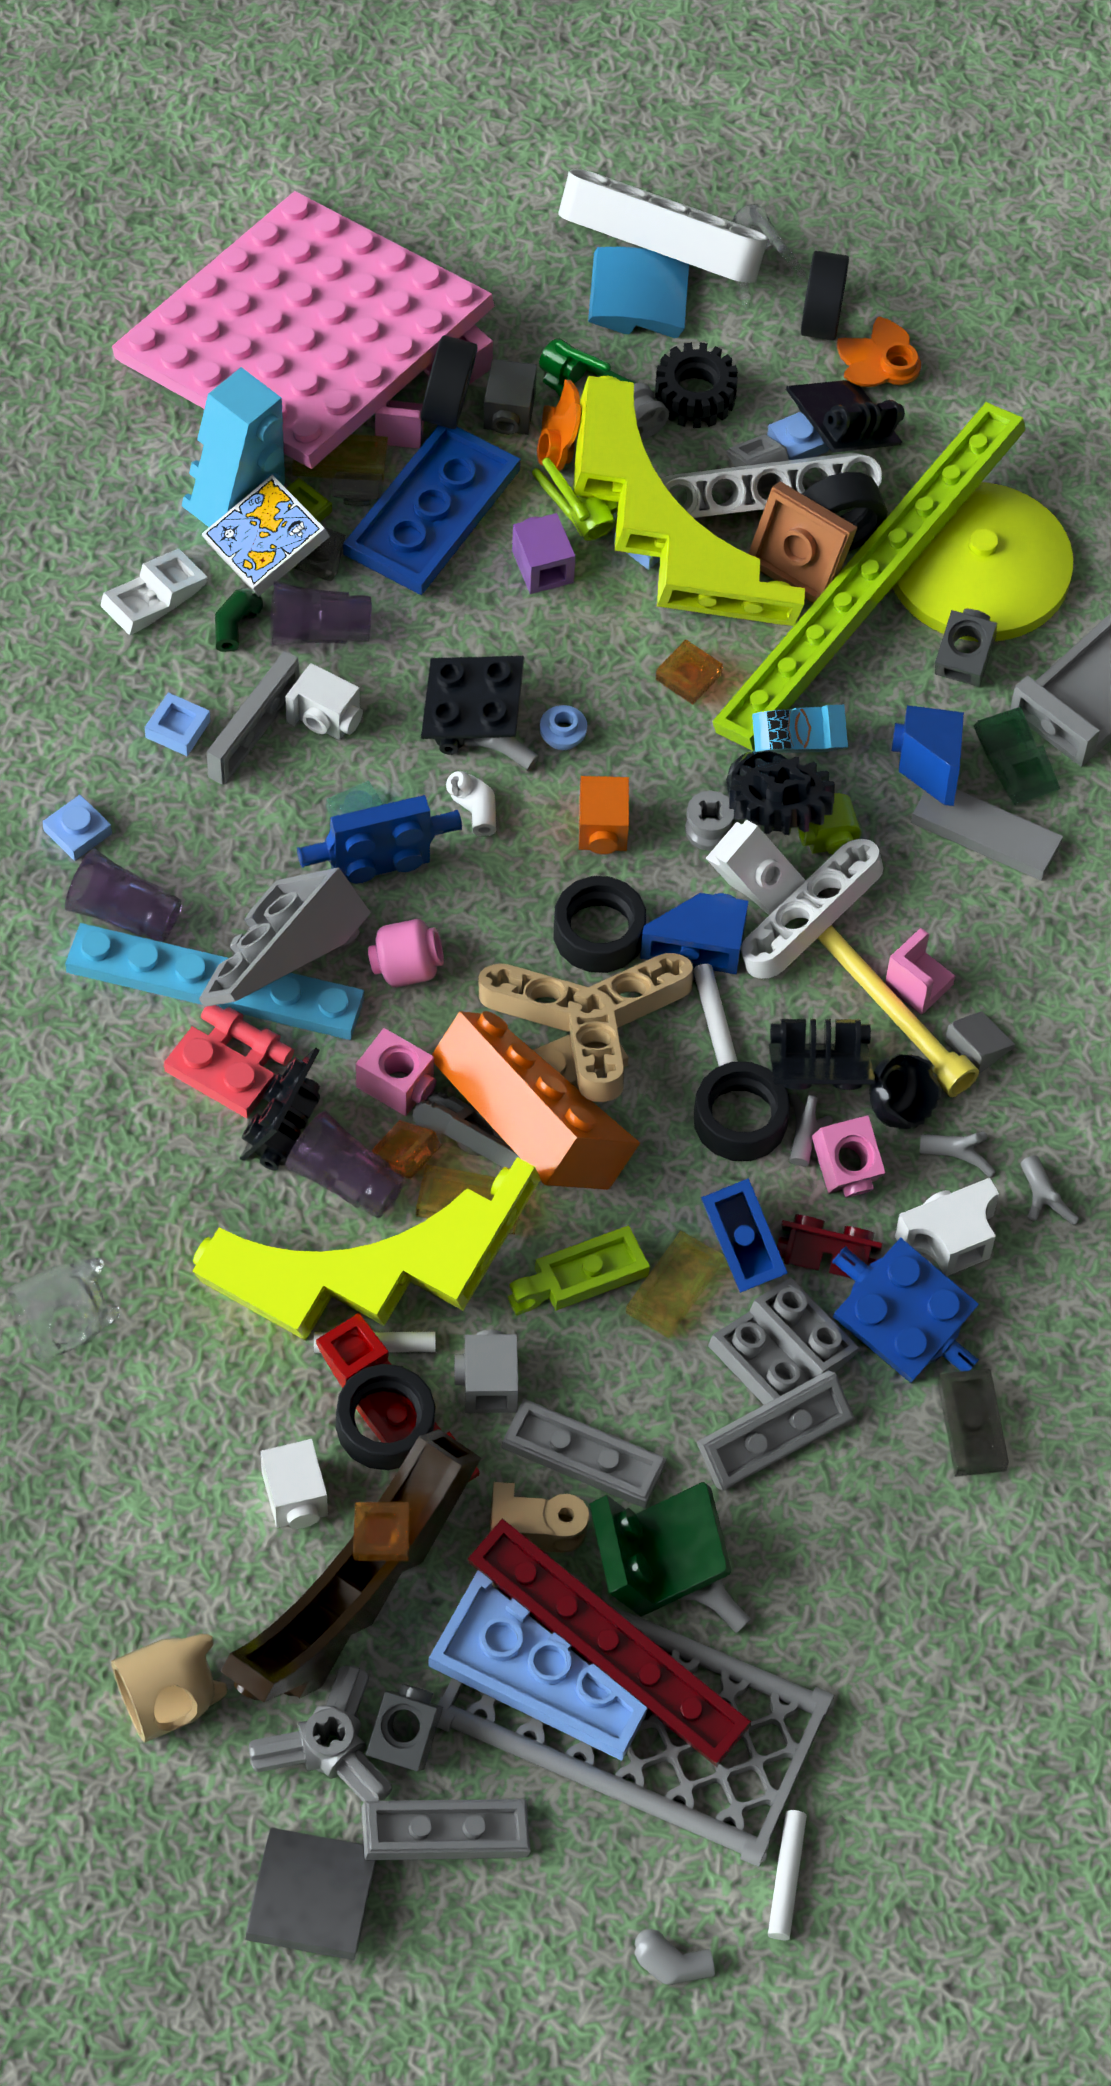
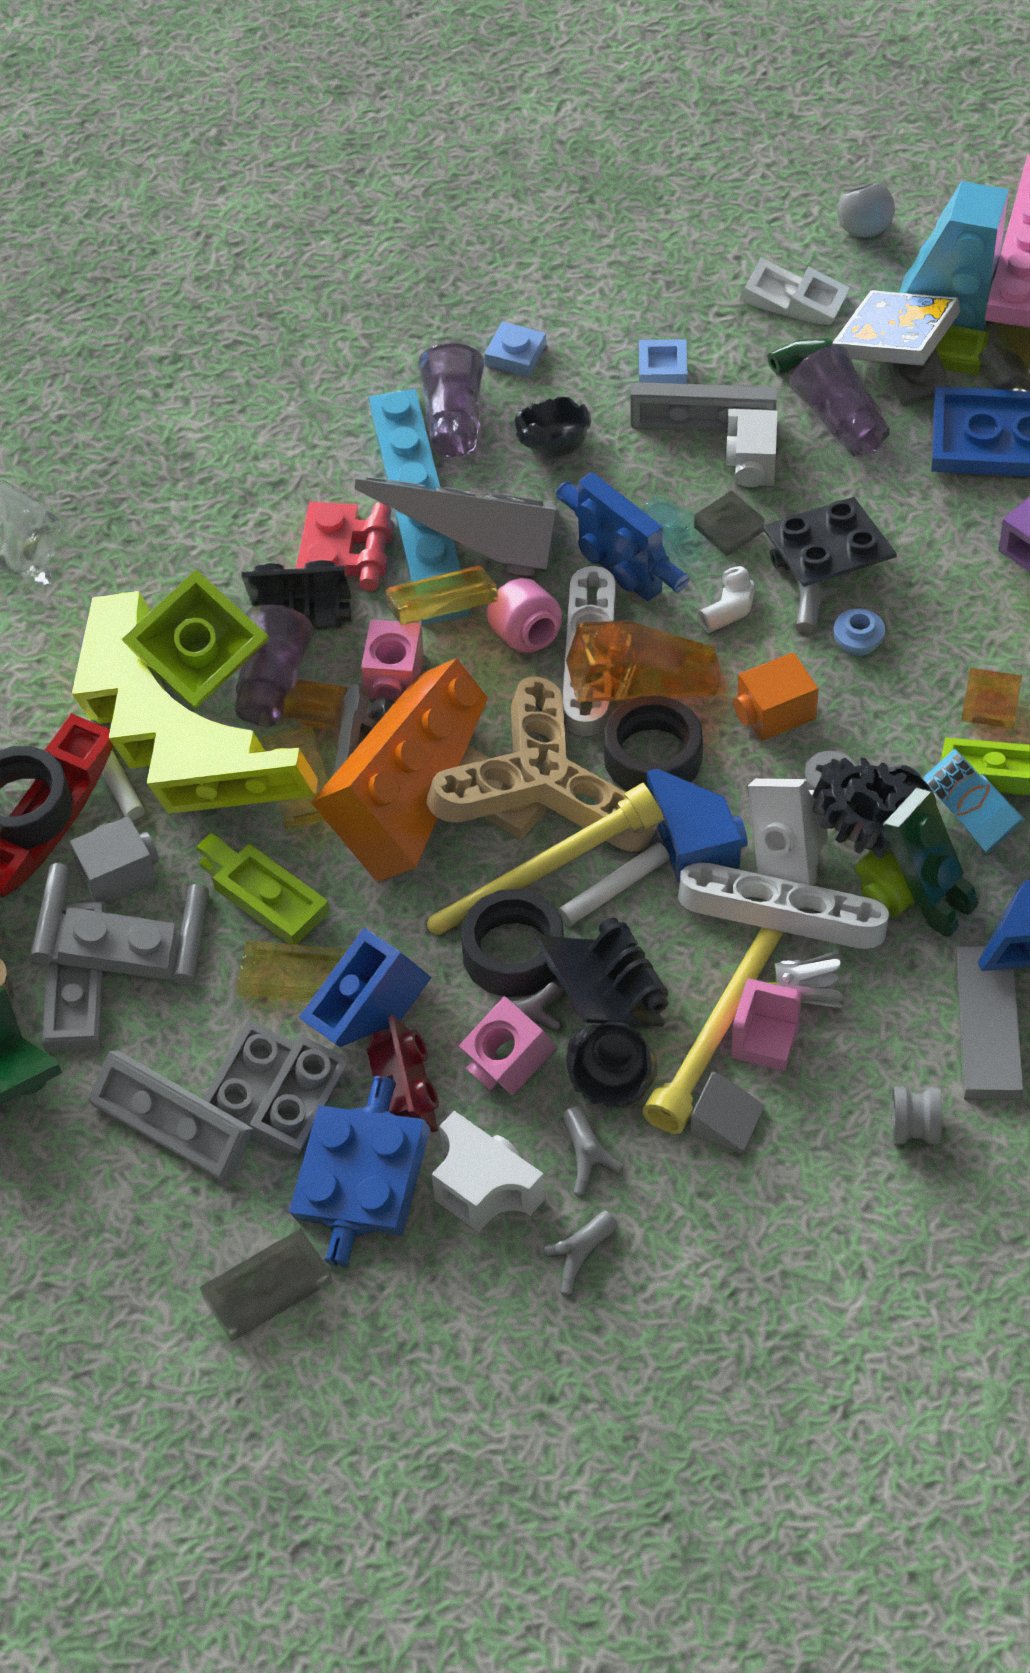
camera: 70 degrees right, 5 degrees down
(102, 489) = (866, 210): none -> light grey piece
(203, 835) = (553, 426): none -> black hair
(313, 1199) = (195, 639): none -> lime slope
(362, 999) = (441, 595): none -> clear yellow tile
(393, 761) = (729, 523): none -> clear smoke plate
(468, 920) = (581, 612): none -> white beam
(520, 894) = (635, 660): none -> clear orange slope
(576, 1405) = (115, 940): none -> light grey plate
(680, 957) = (635, 811): none -> light yellow piece
(853, 783) = (929, 862): none -> dark green hinge
(882, 935) = (810, 978): none -> flat silver piece
(1052, 913) = (916, 1115): none -> light grey wheel

